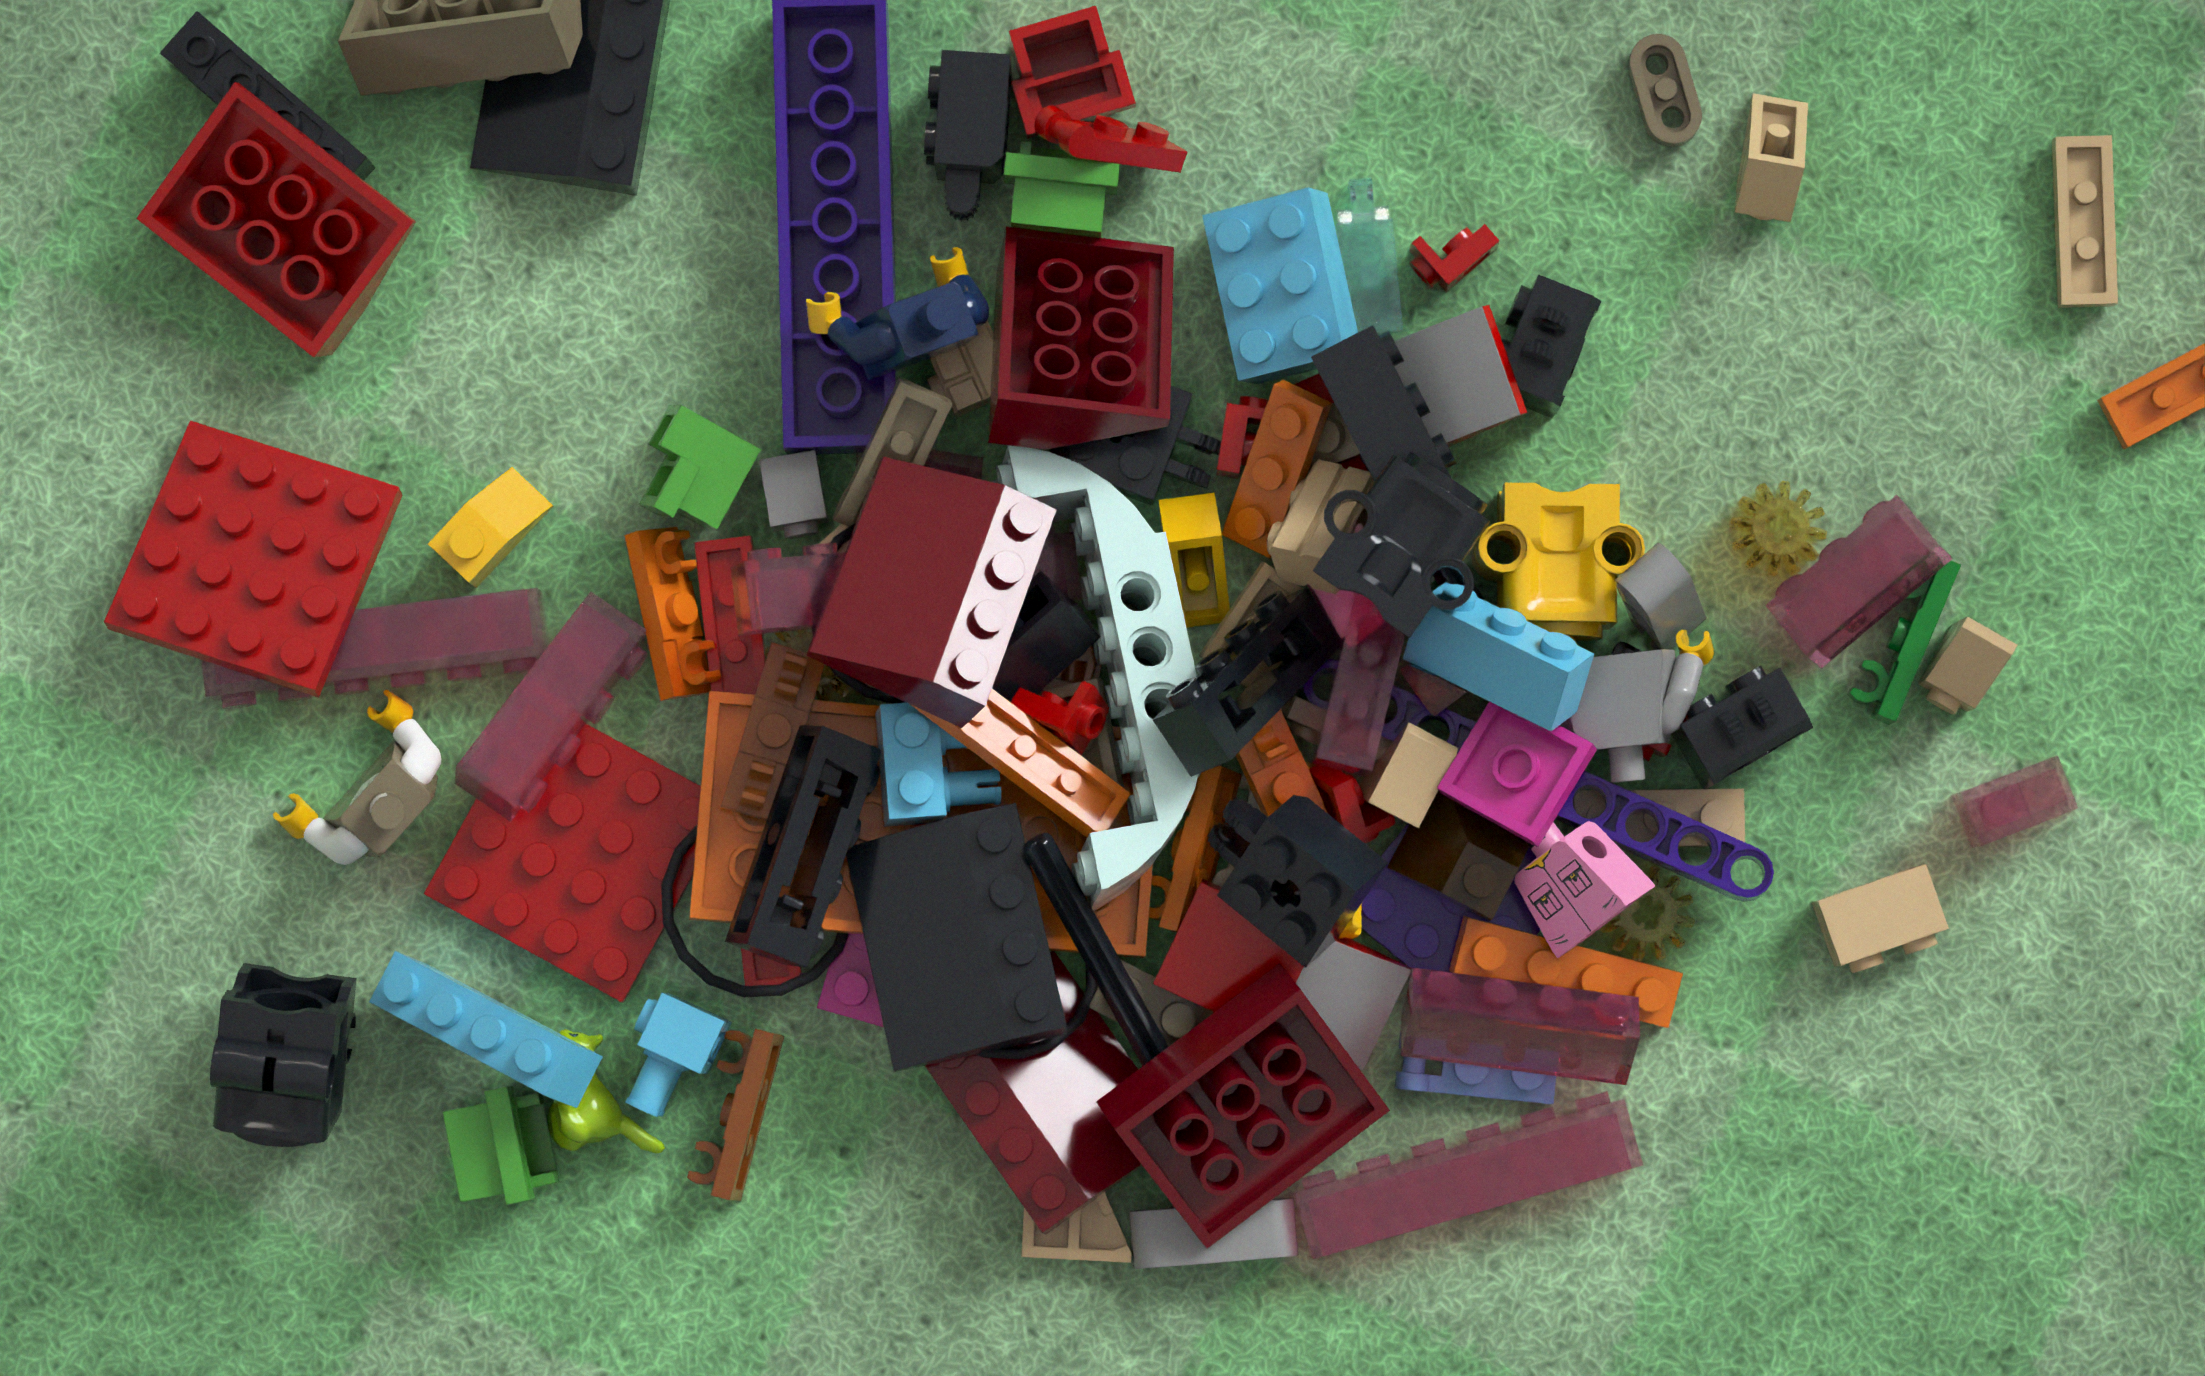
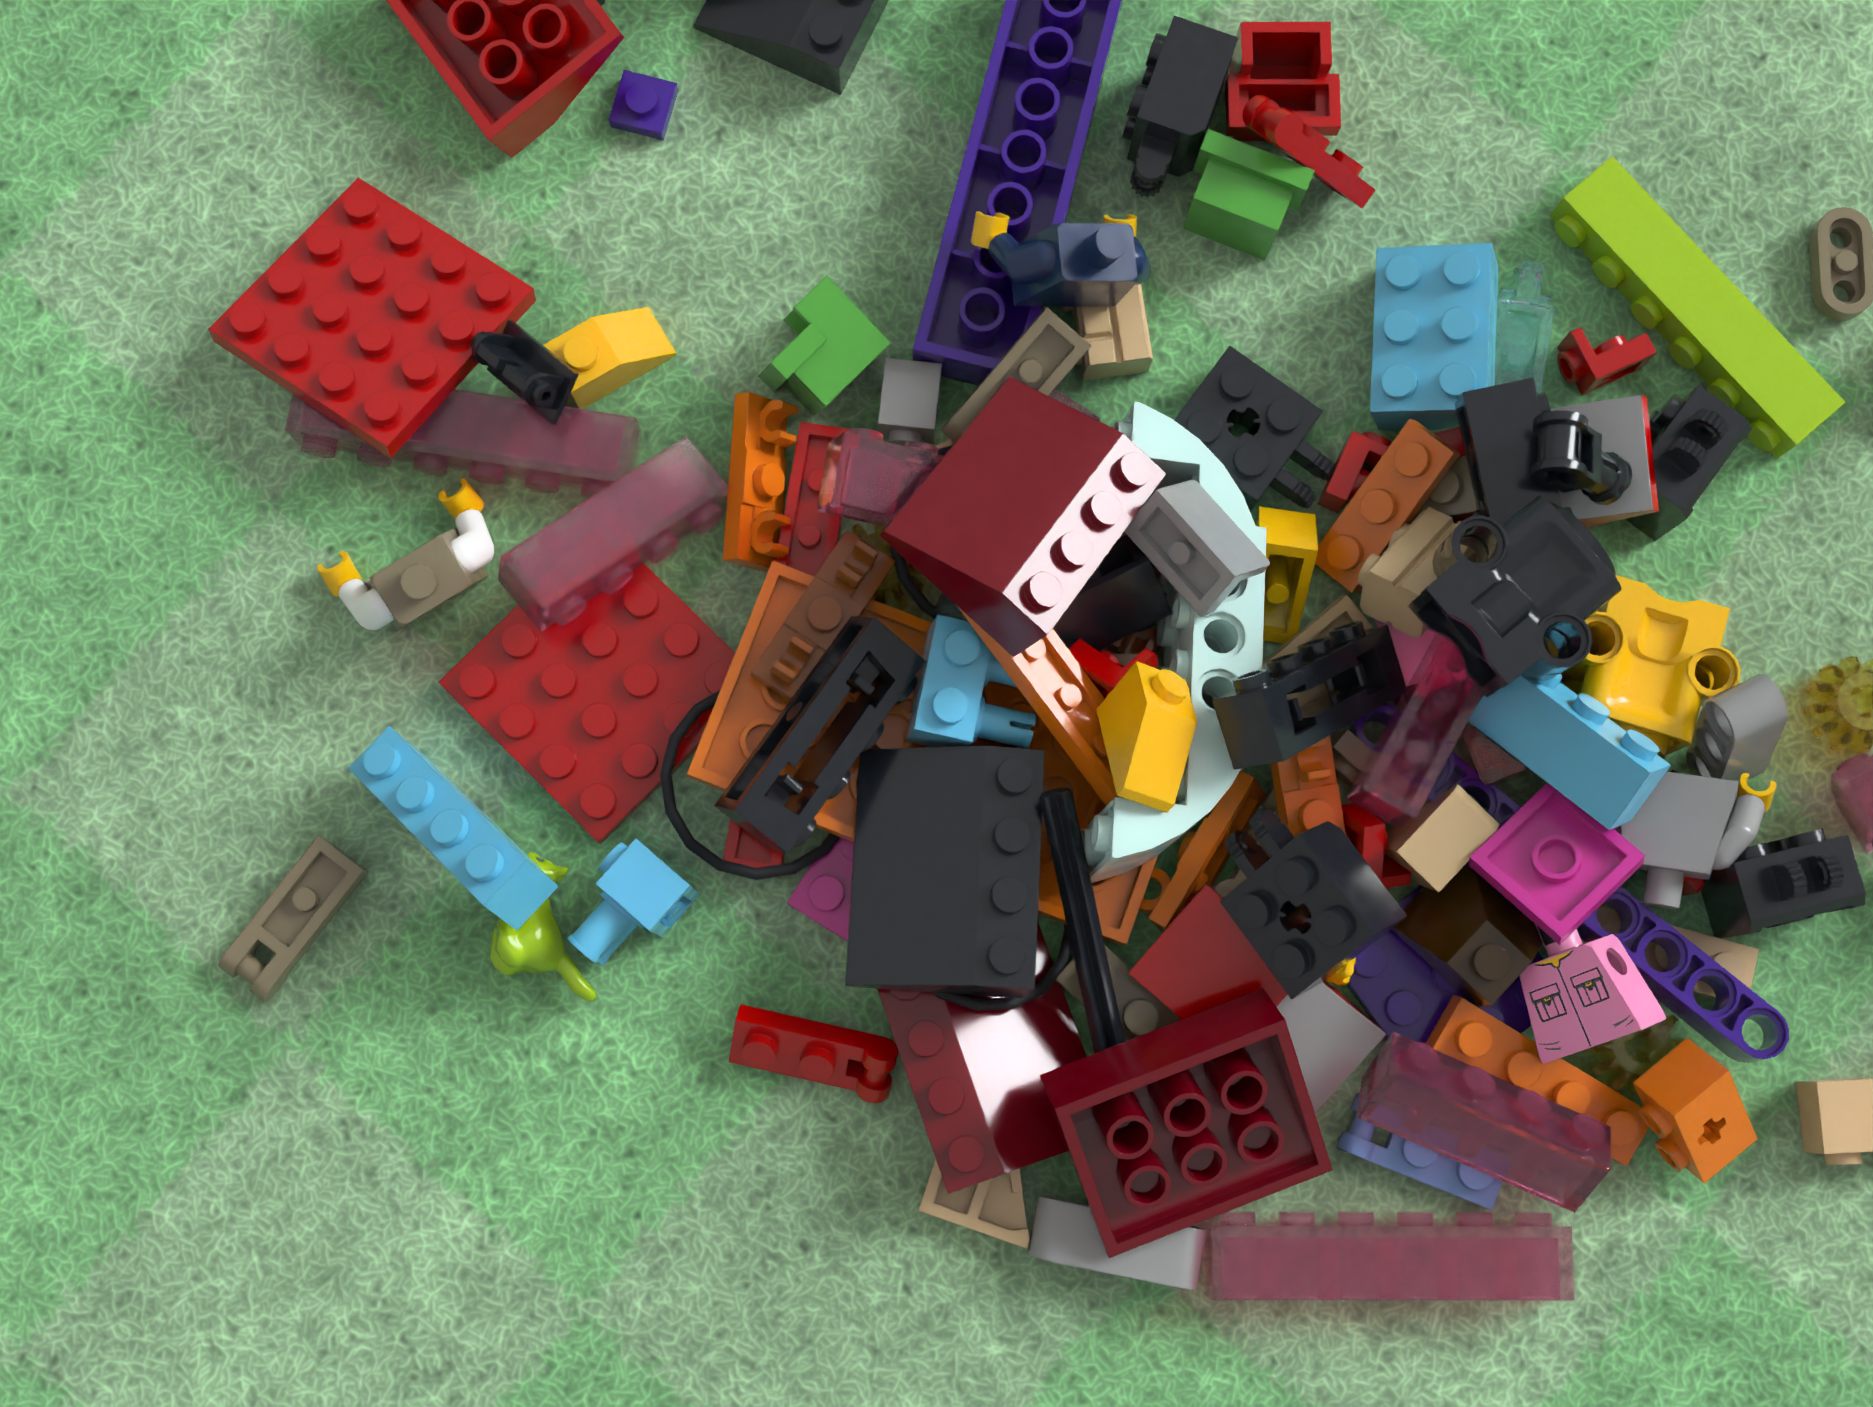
camera: 10 degrees right, 5 degrees down
(282, 1056) = (242, 795): black piece -> none
(357, 1153) = (293, 917): none -> dark tan plate
(420, 572) = (526, 369): none -> black hinge
(445, 264) = (643, 105): none -> dark purple plate
(501, 1147) = (433, 949): bright green plate -> none
(741, 1113) = (681, 986): dark orange plate -> none
(883, 1139) = (814, 1052): none -> red plate
(1079, 339) = (1229, 326): dark red slope -> none
(1102, 571) = (1195, 545): none -> light grey panel
(1104, 766) = (1148, 734): none -> yellow slope
(1428, 394) = (1574, 459): none -> black connector
(1529, 179) = (1694, 308): none -> lime brick
(1710, 960) = (1694, 1111): none -> orange brick

